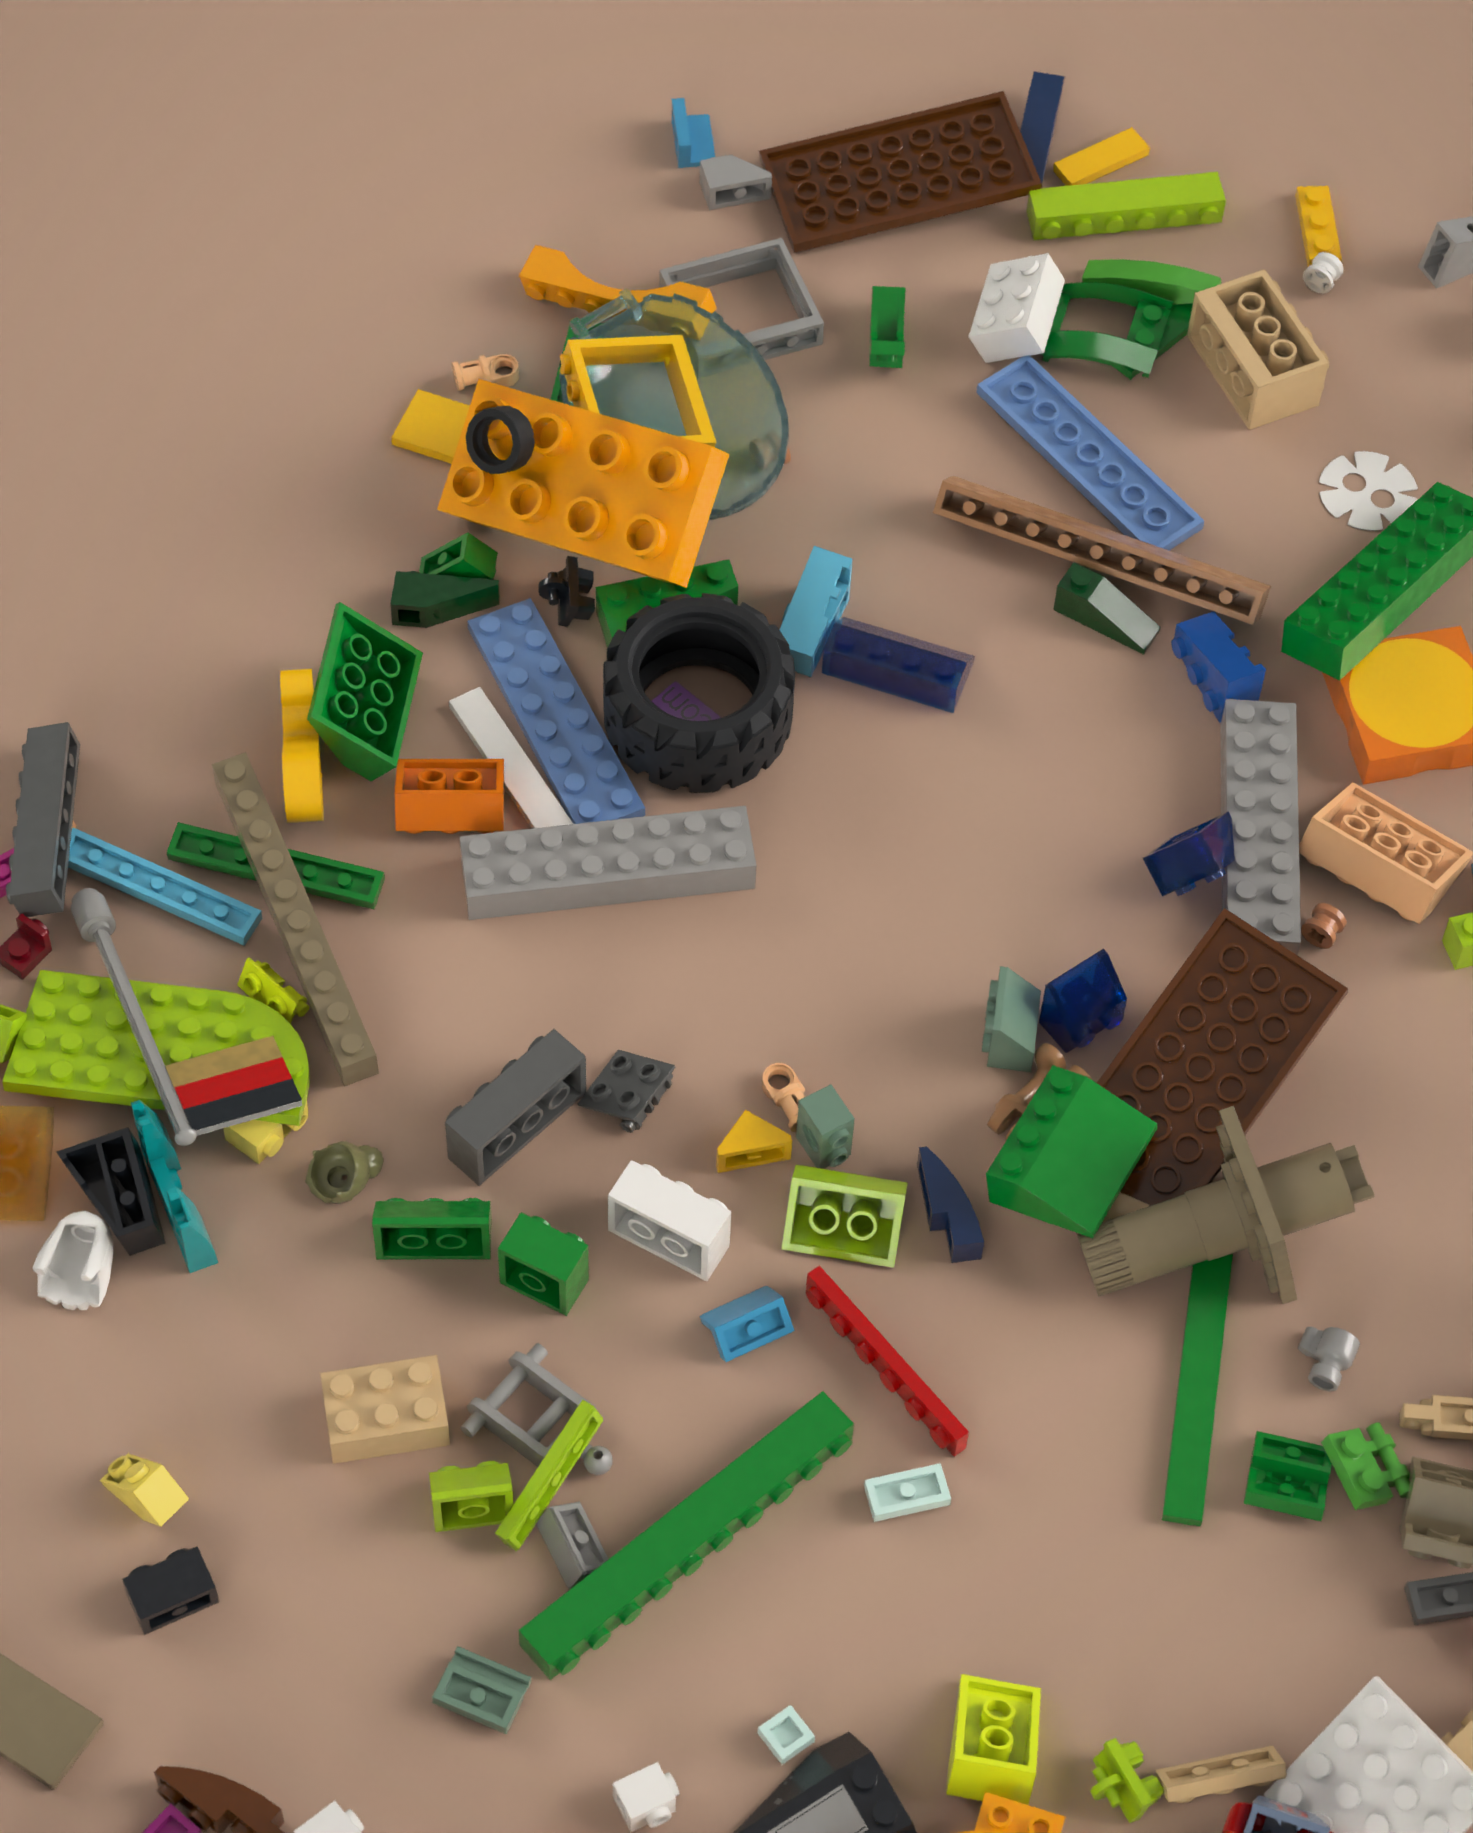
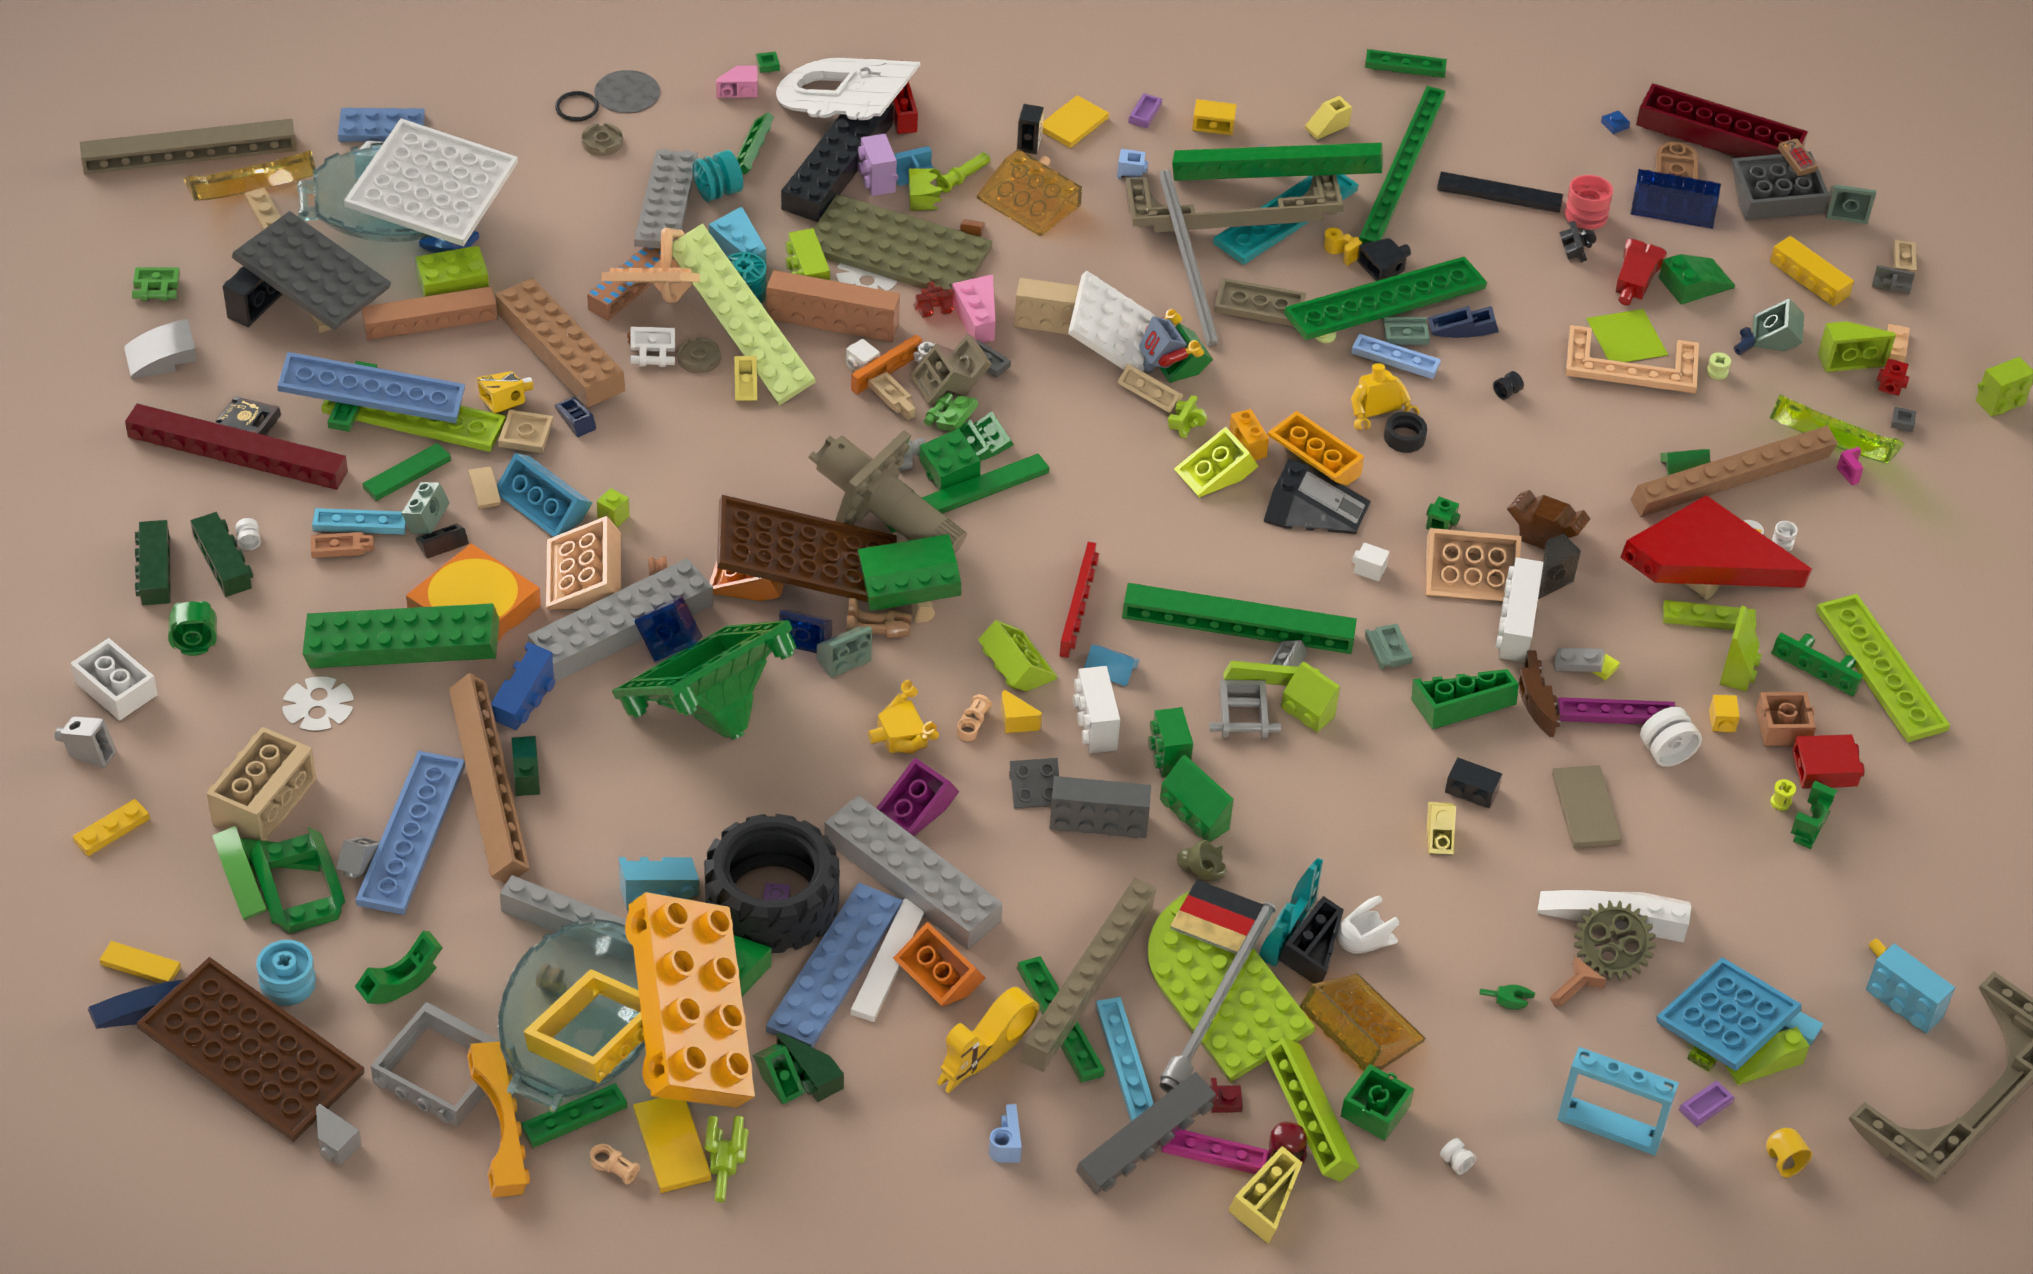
camera: 130 degrees left, 10 degrees down
(177, 710) = (1008, 1136): none -> light blue plate
(265, 985) = (1136, 958): neon yellow hinge -> none
(311, 1689) = (1463, 697): none -> green wedge
(364, 693) = (918, 1031): green slope -> none
(385, 1409) = (1304, 762): tan brick -> none
(404, 459) = (725, 1153): none -> lime plant
(521, 434) = (712, 1033): black tyre -> none
(565, 589) = (753, 1003): black hips -> none
(691, 135) = (307, 1189): dark azure panel -> none
(712, 943) = (917, 797): none -> magenta slope
(786, 1734) = (1290, 534): light aqua plate -> none
(825, 1127) = (984, 677): sand green brick -> none
(829, 515) = (547, 907): none -> light grey brick
(835, 1003) = (901, 725): none -> yellow torso
(896, 664) = (646, 823): clear blue slope -> none
(907, 1492) = (1134, 557): light aqua plate -> none
(949, 1208) = (974, 620): dark blue slope -> none
(972, 241) = (286, 972): none -> medium azure wheel
(1017, 308) = (329, 913): white brick -> none
(1064, 793) = (712, 677): none -> green piece
(1092, 387) = (356, 856): none -> light grey slope
(1125, 205) = (178, 919): lime brick -> none
(1261, 1381) = (949, 460): none -> green brick
(1323, 272) = (157, 798): white wheel -> none

